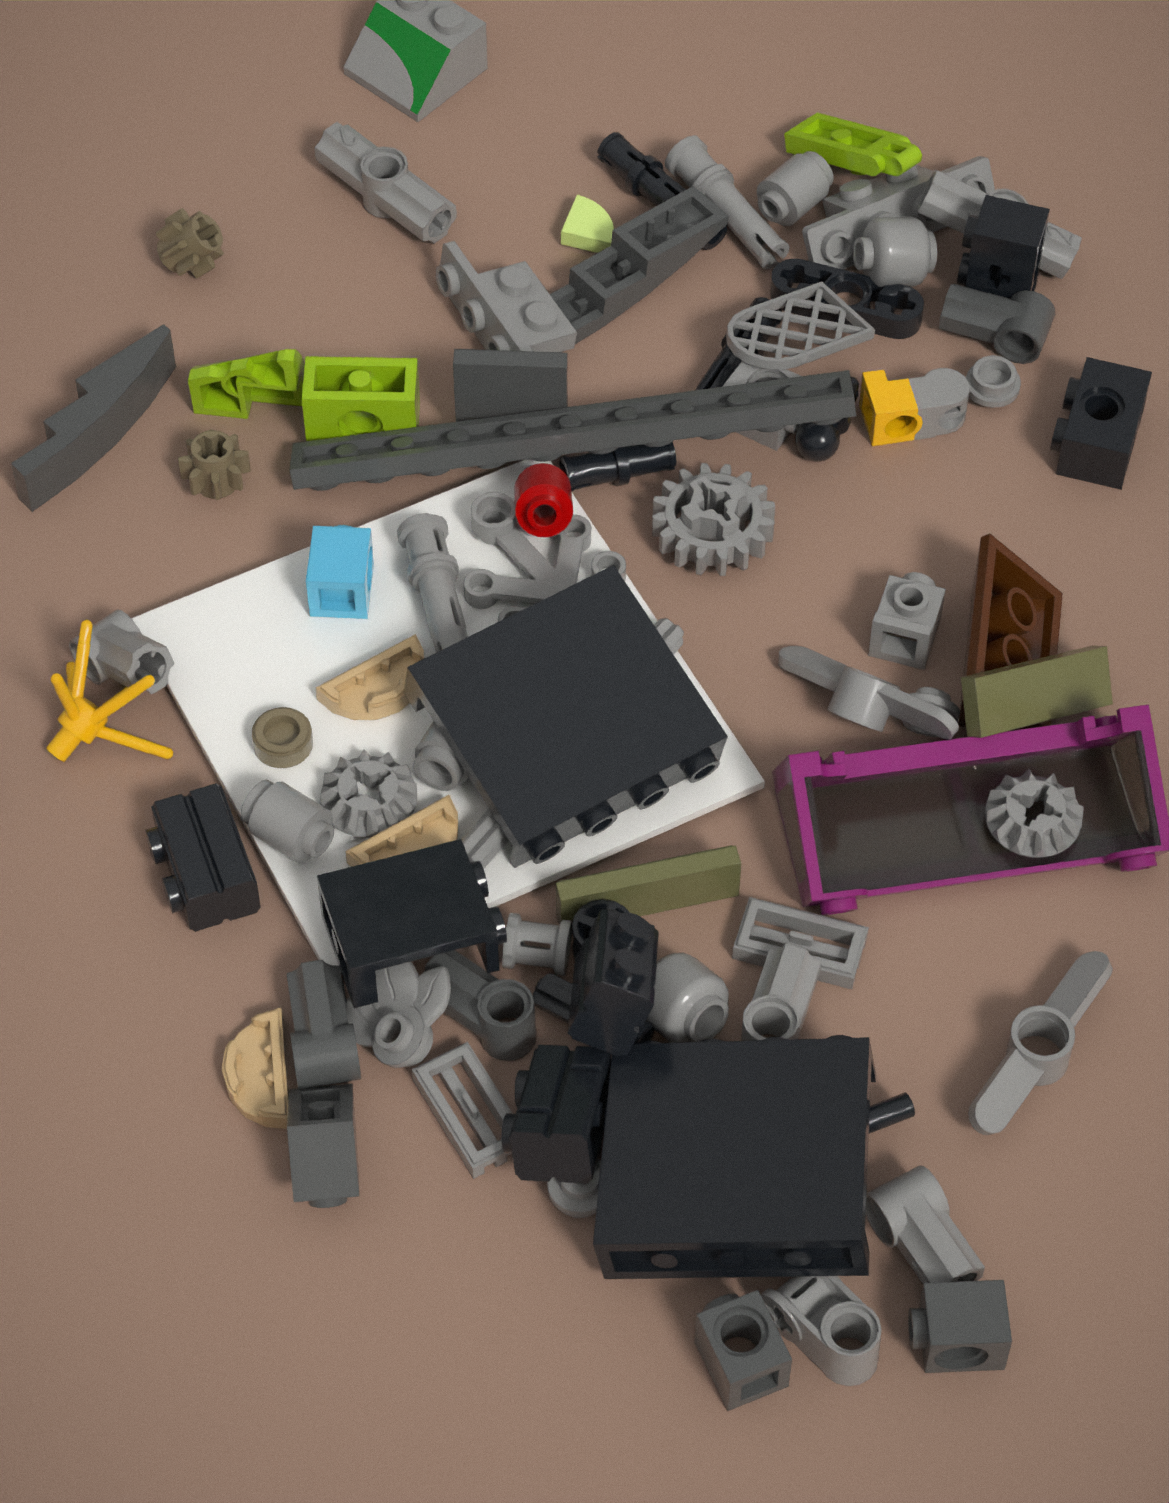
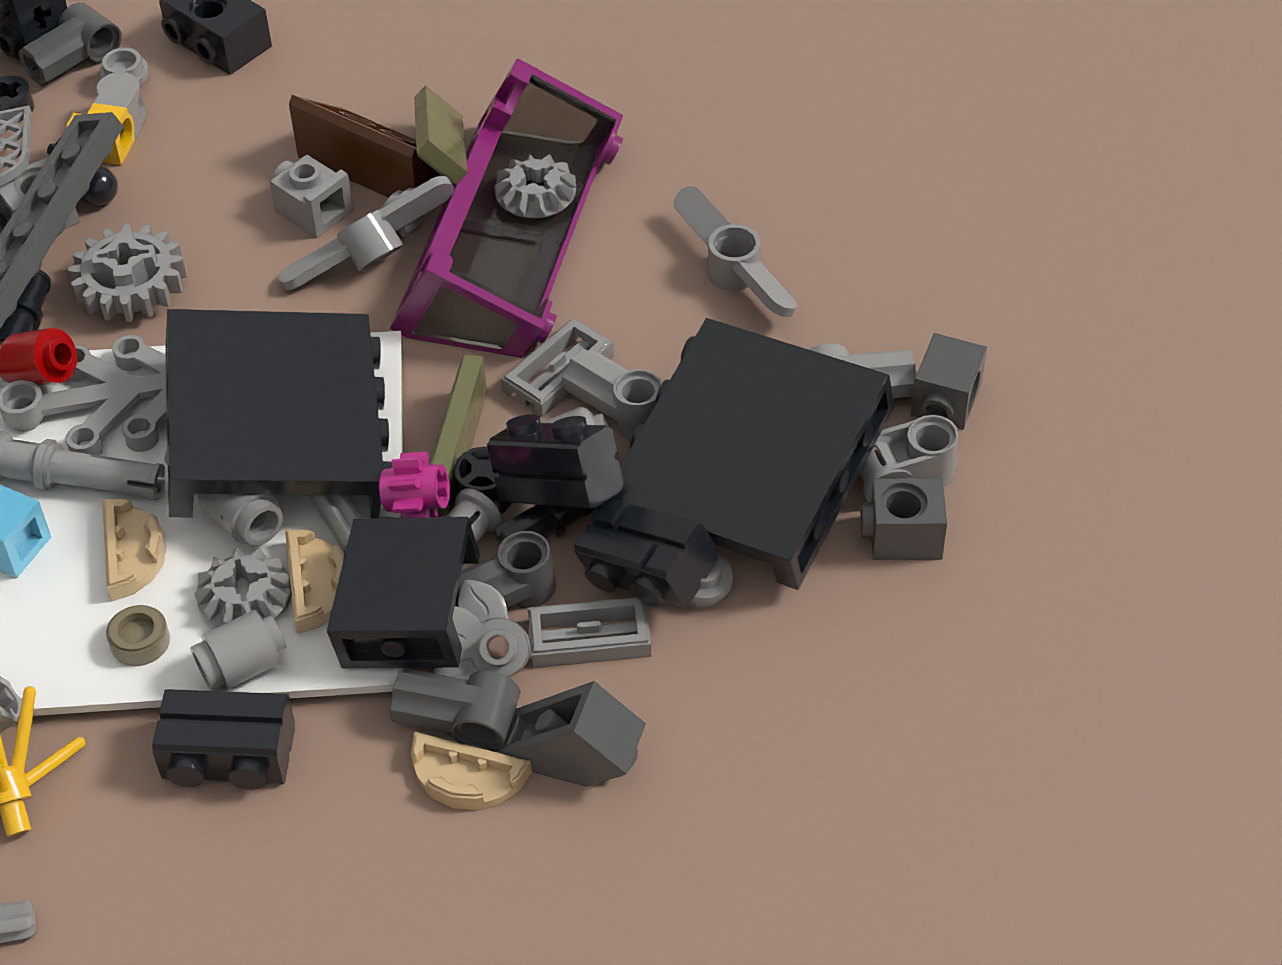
camera: 65 degrees left, 5 degrees down
(525, 874) = (414, 486): none -> dark pink gear

